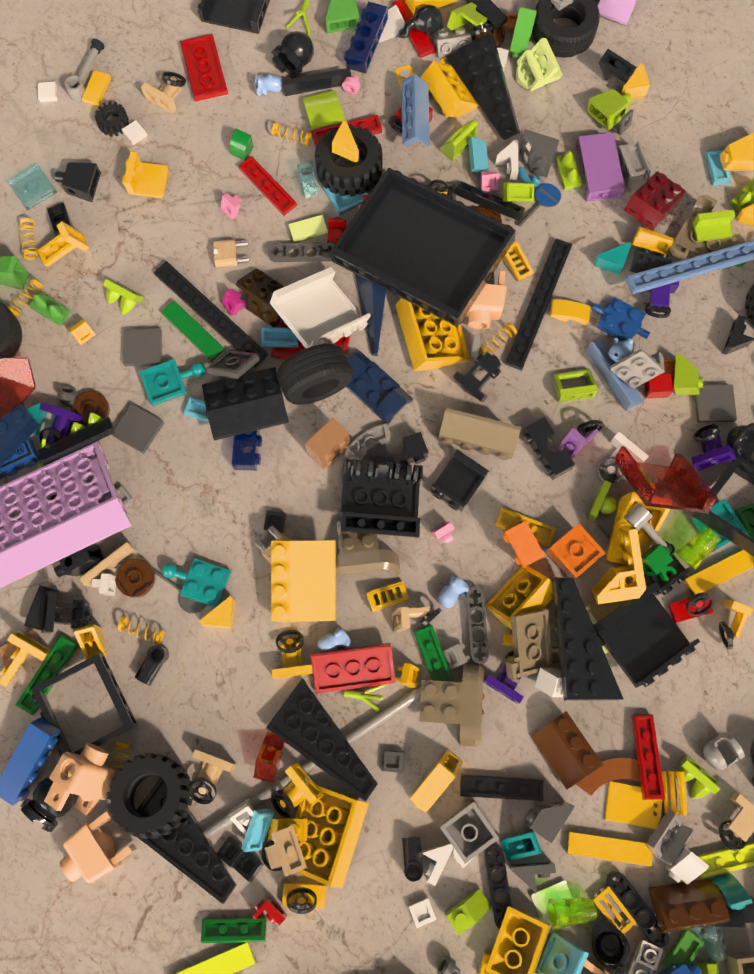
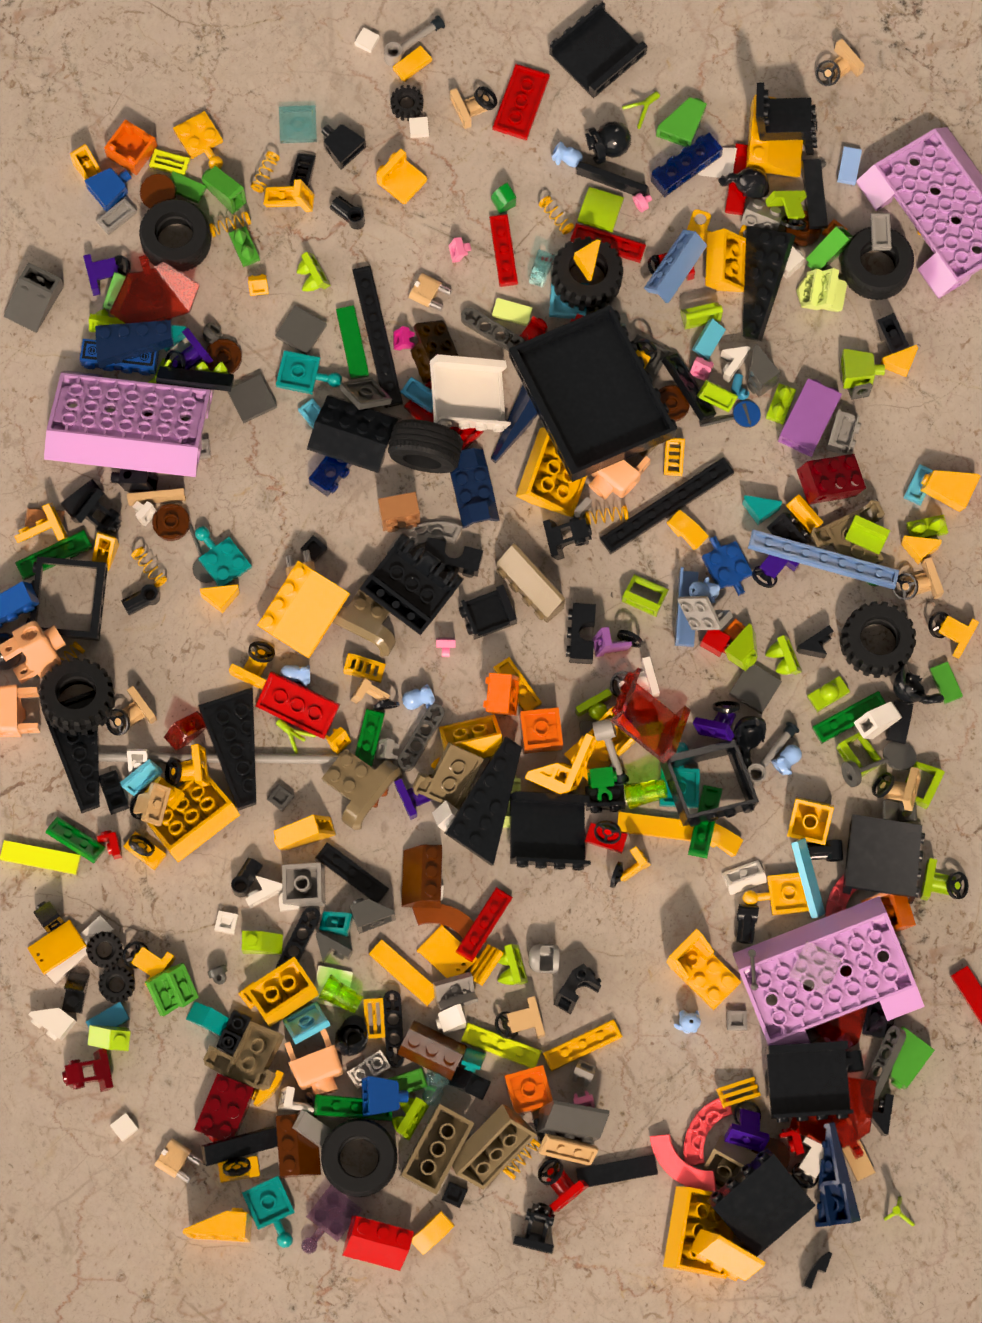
camera: 30 degrees right, 0 degrees up
(120, 229) = (347, 212): none -> black piece
(714, 357) = (784, 649): none -> lime tile

